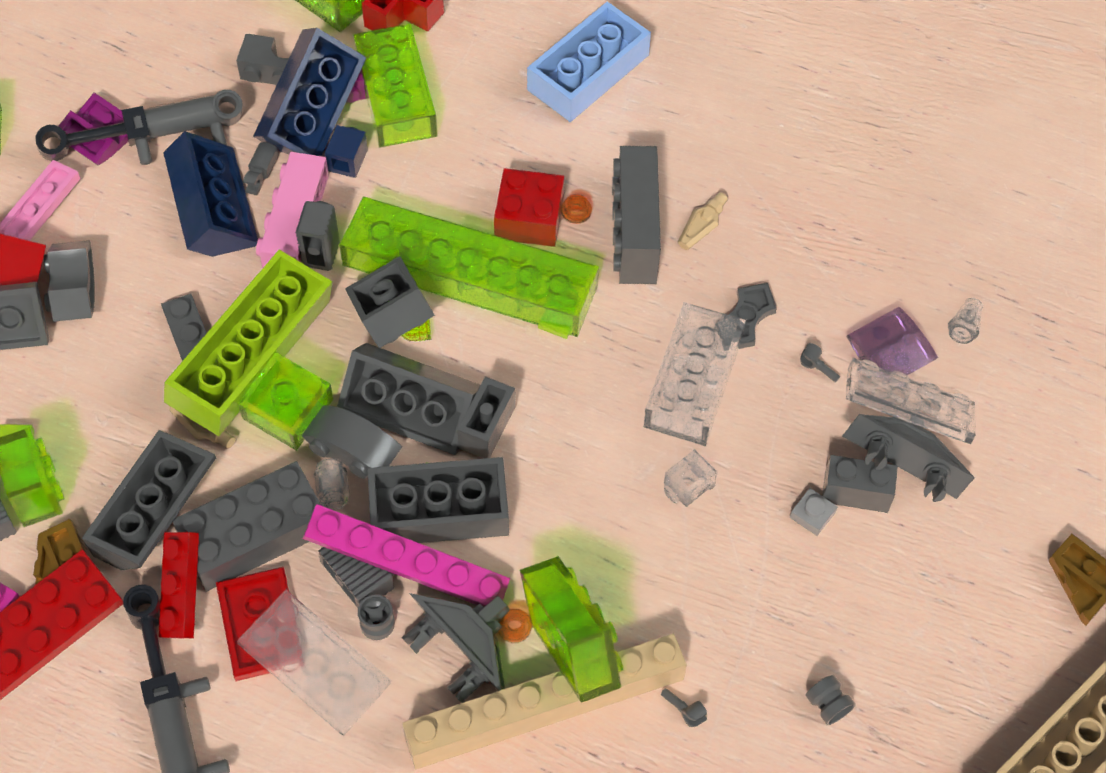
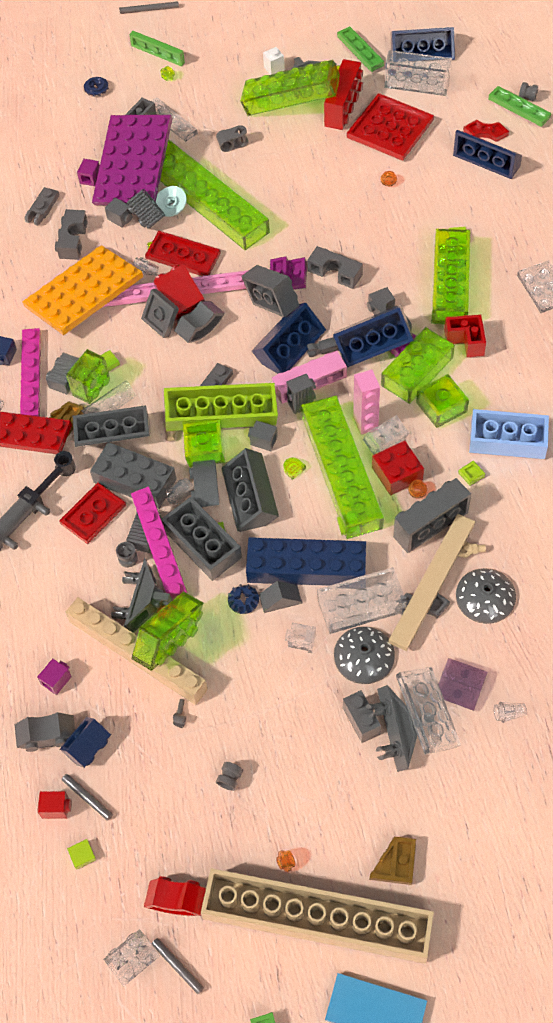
camera: 60 degrees right, 0 degrees up
(93, 477) = (112, 400): none -> clear plate
(121, 157) = (270, 290): none -> dark grey brick
(151, 123) = (309, 291): dark grey piece -> none
(165, 58) = (324, 260): none -> dark grey arch
(178, 585) = (80, 467): red plate -> none
(314, 662) = (86, 545): clear plate -> none
(336, 325) = (263, 435): none -> dark grey brick
(346, 151) = (361, 366): dark blue brick -> none
(389, 302) = (287, 446): dark grey brick -> none
(419, 163) = (366, 401): none -> bright pink brick
(473, 188) = (386, 435): none -> clear brick
(476, 94) = (442, 400): none -> clear neon green brick
(486, 418) = (261, 526): dark grey brick -> none
(574, 527) = (236, 603): none -> dark blue gear
(580, 401) = (304, 561): none -> dark blue brick
(601, 139) = (471, 473): none -> lime tile
(603, 470) = (280, 596): none -> dark grey slope
(729, 282) = (431, 582): none -> tan tile
(764, 442) = (360, 665): none -> dark grey dish
(784, 253) = (483, 605): none -> dark grey dish
(810, 359) = (422, 649): dark grey hand -> none
(813, 512) = (331, 706): light grey plate -> none
(999, 707) = (285, 860): none -> clear orange plate

